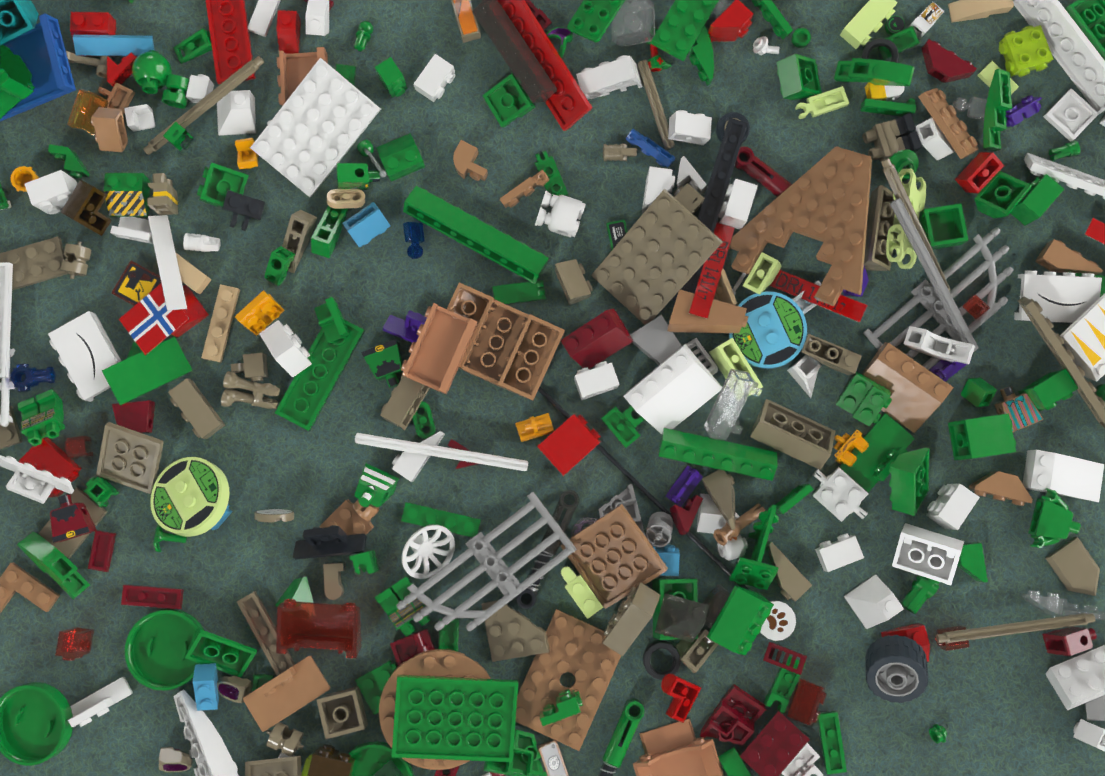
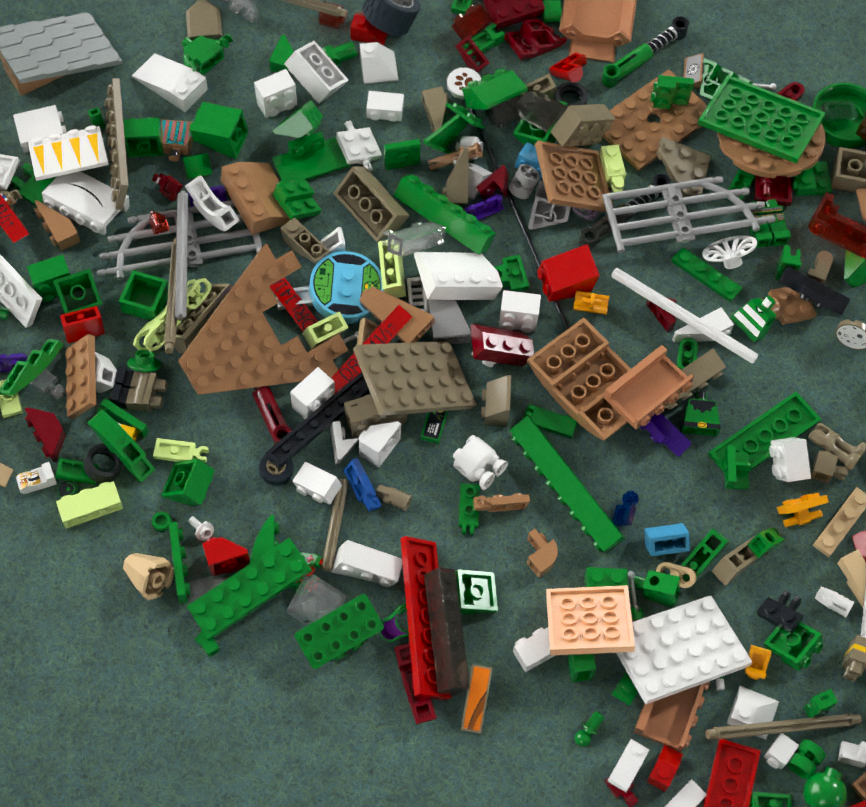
camera: 155 degrees left, 20 degrees down
(398, 107) = (589, 620): none -> light nougat plate
(848, 444) = (338, 169): light orange hips -> none
(991, 355) = (169, 186): none -> dark red plate
(1002, 487) = (227, 93): medium nougat slope -> none

